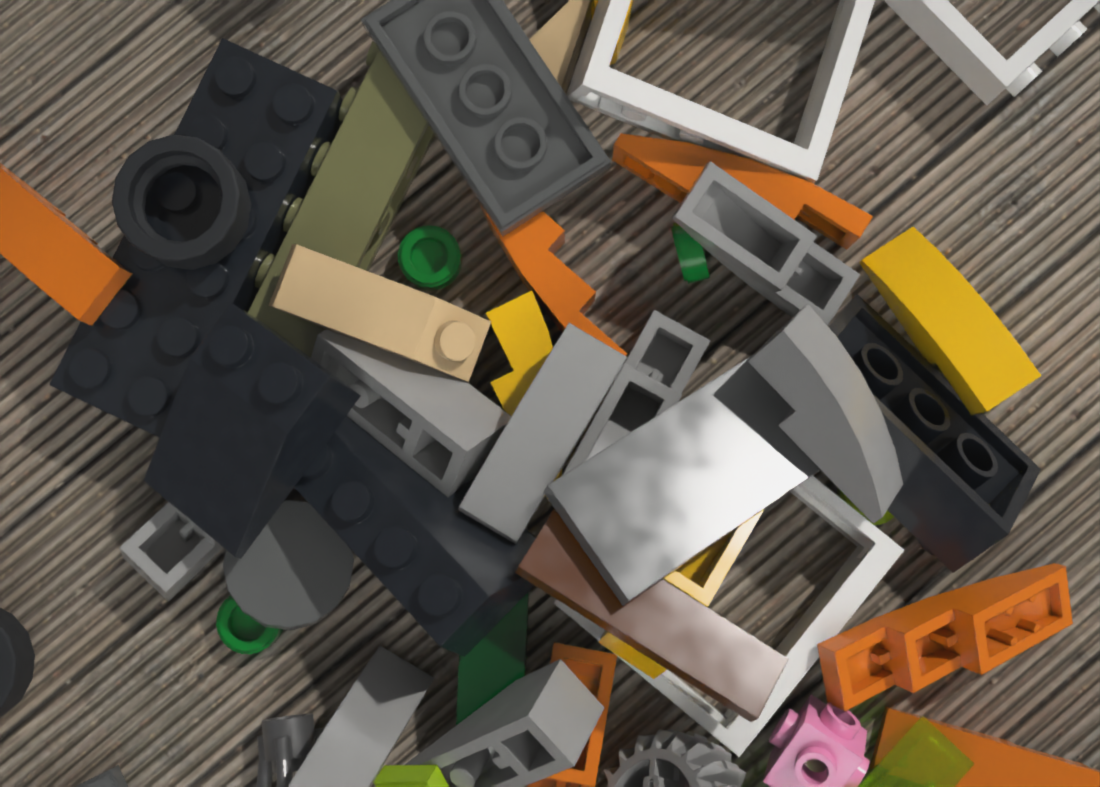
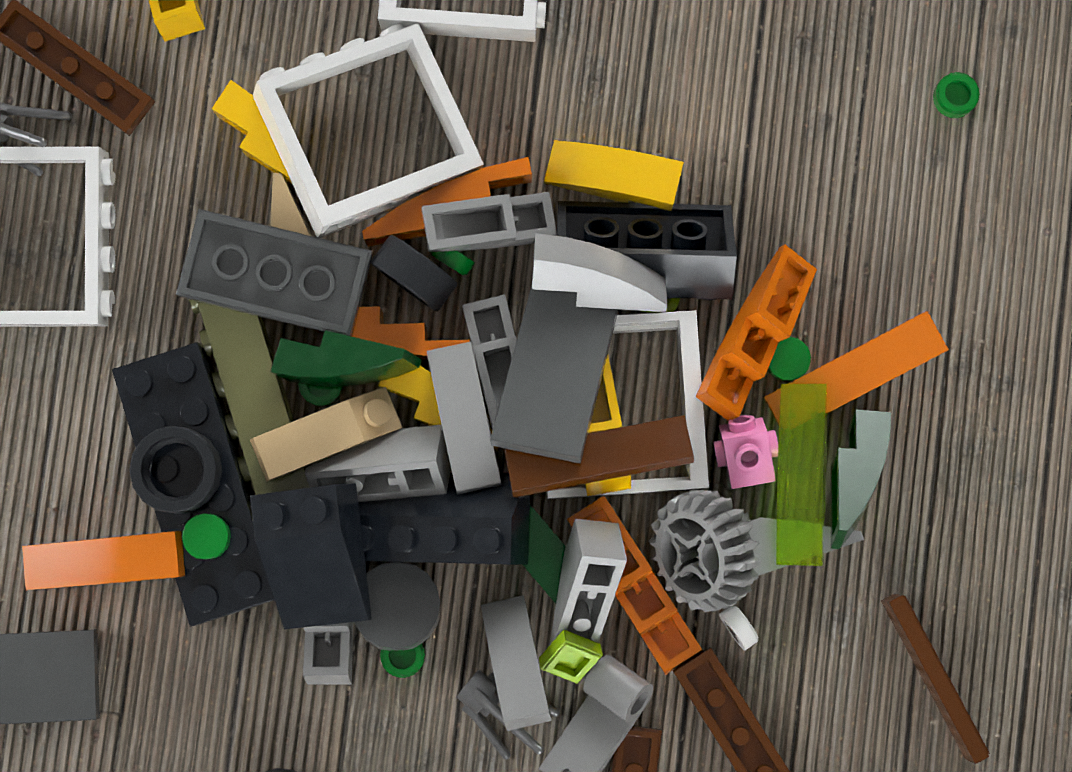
camera: 50 degrees left, 0 degrees up
(149, 304) = (206, 536): none -> green tile
(469, 251) = (341, 361): none -> dark green slope
(635, 228) = (414, 273): none -> black tyre
(955, 698) = (790, 360): none -> green tile

